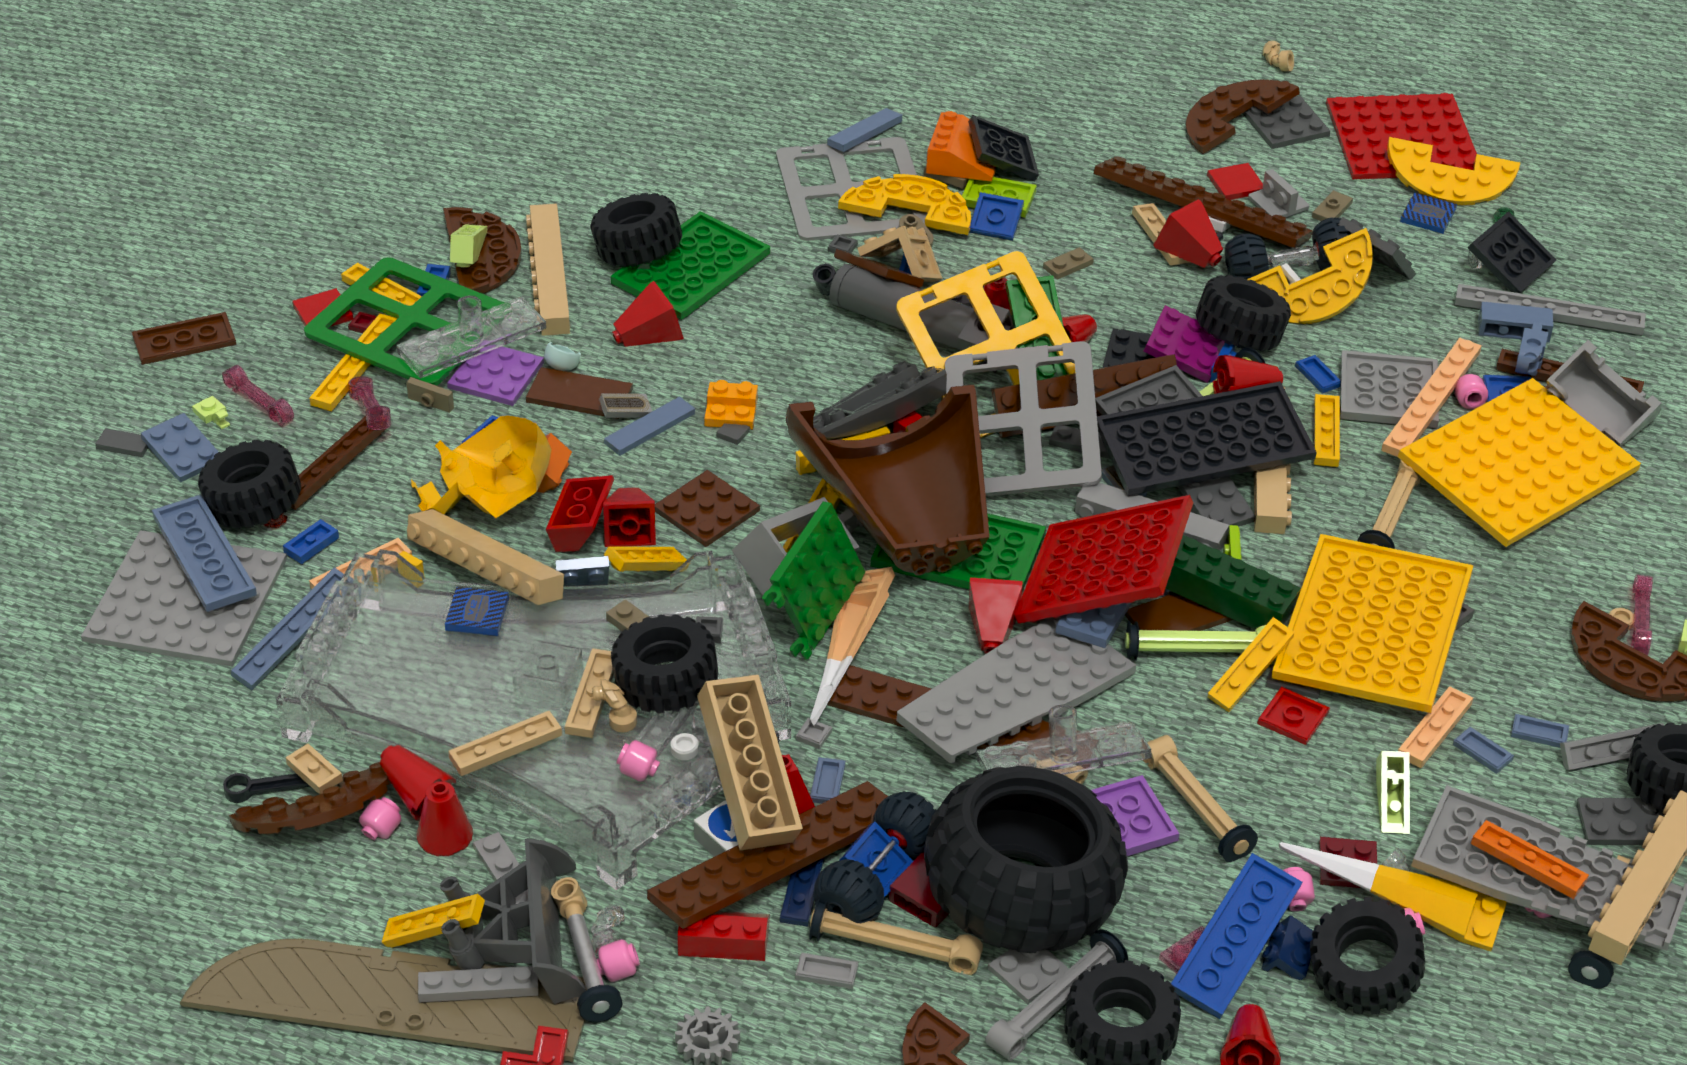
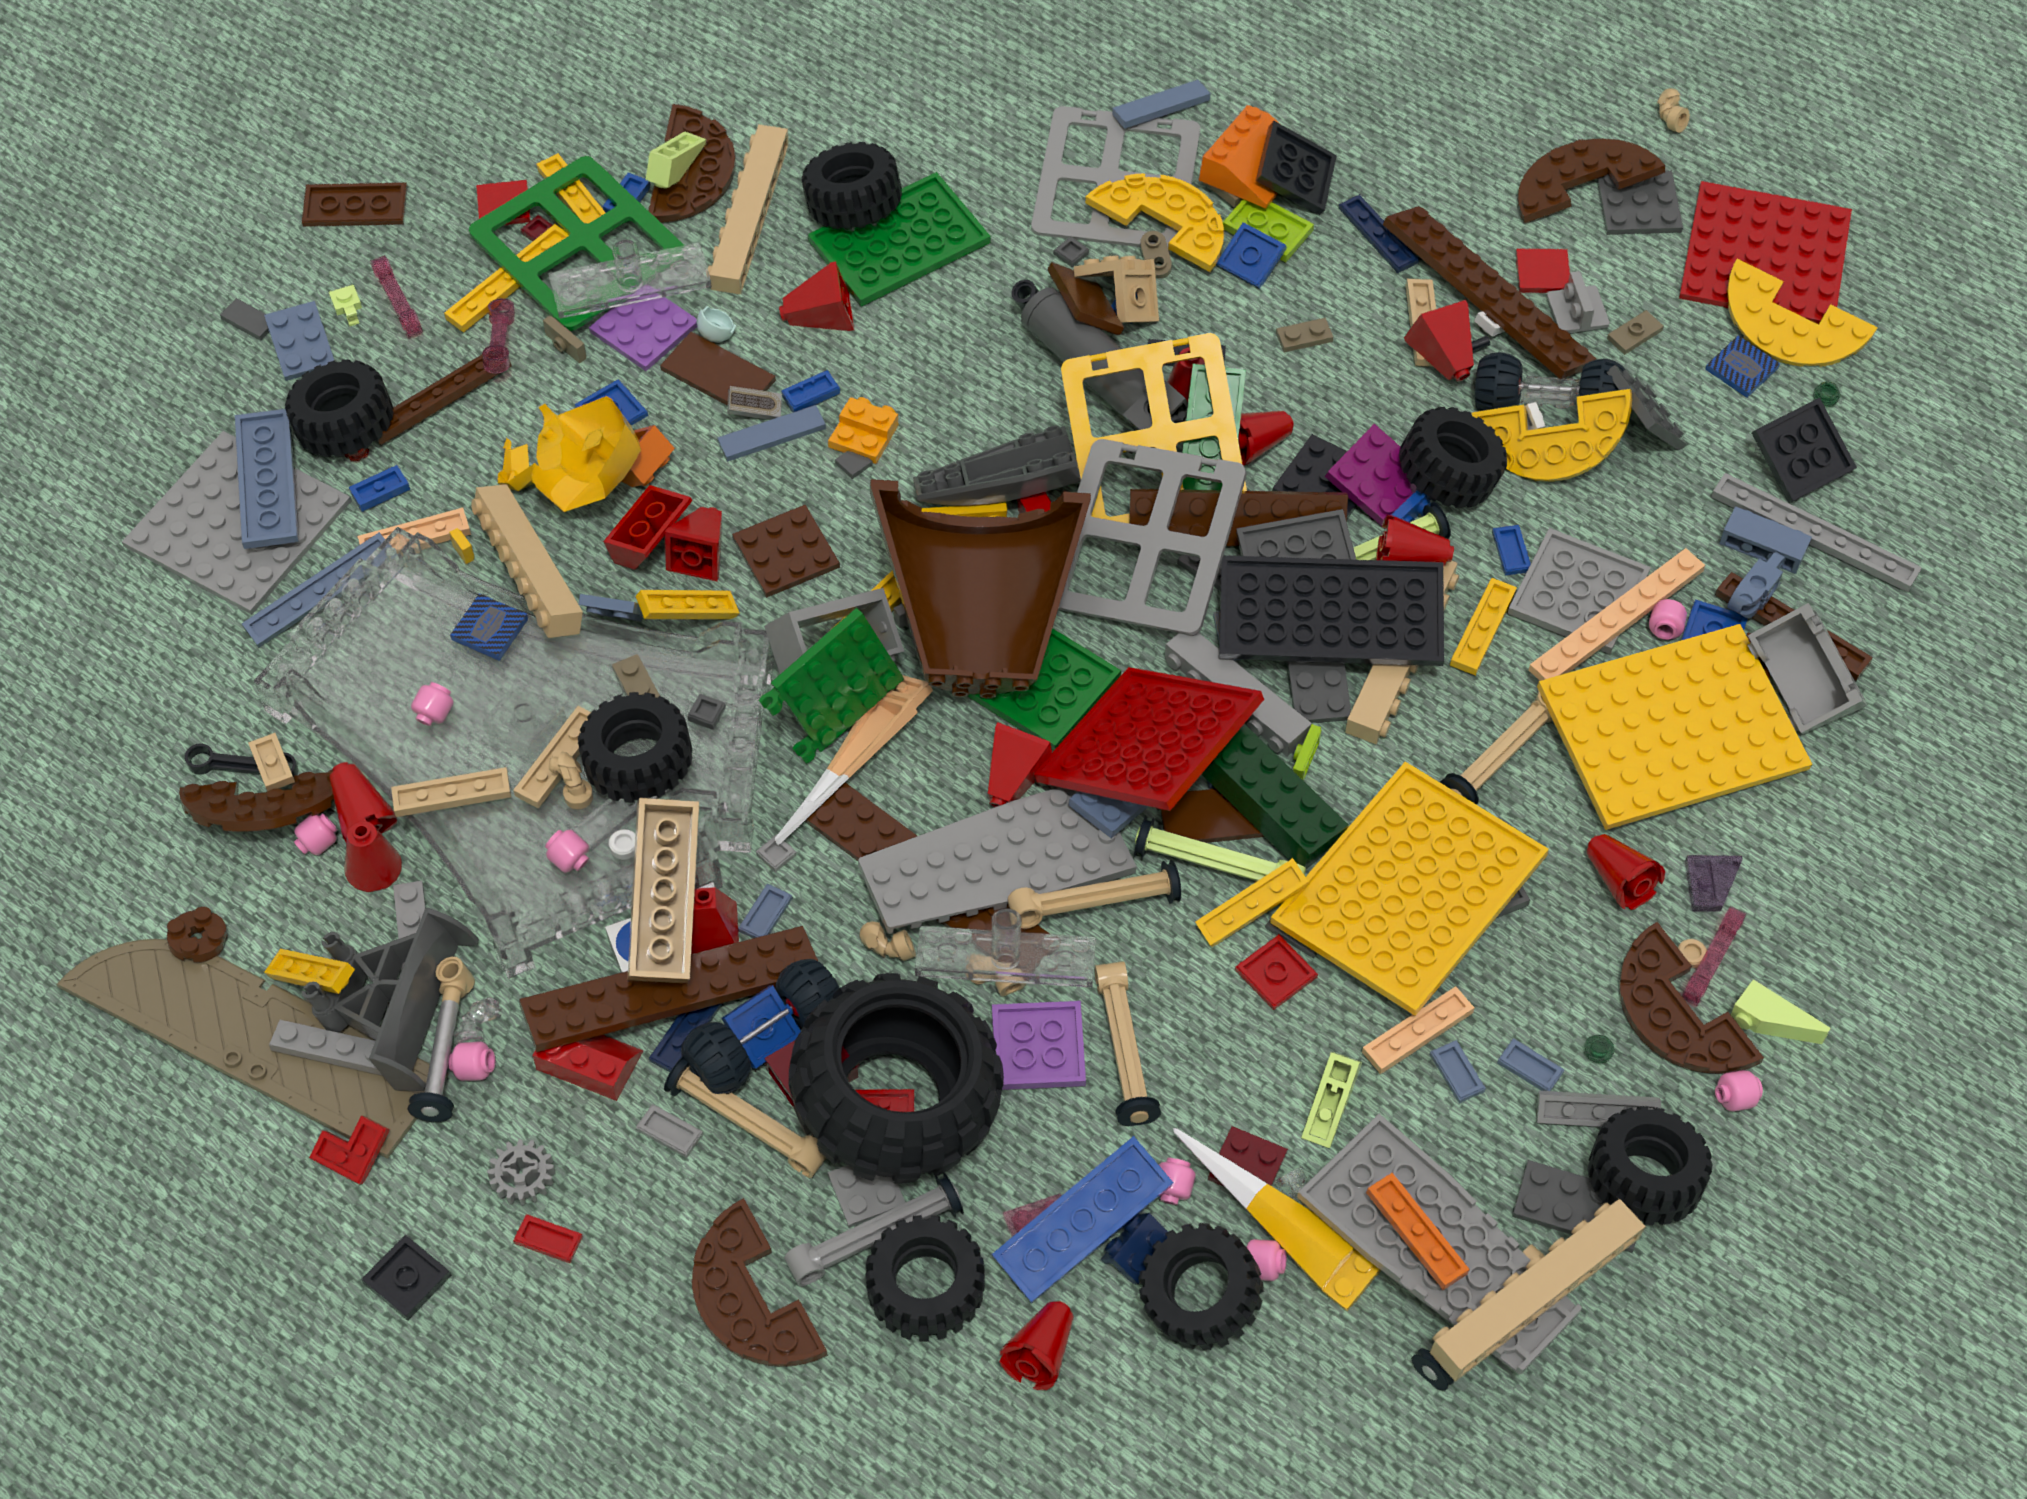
camera: 20 degrees right, 15 degrees up
(301, 927) = (196, 921): none -> reddish brown plate
(455, 679) = (432, 704): none -> bright pink head
(670, 388) = (810, 391): none -> blue plate
(935, 773) = (874, 938): none -> tan arm
(1090, 183) = (1372, 228): none -> dark blue tile
(1169, 668) = (1035, 906): none -> tan piece
(1538, 569) = (1625, 871): none -> red cone
(1588, 704) = (1599, 1048): none -> clear green plate
(1607, 563) = (1710, 880): none -> clear purple wing

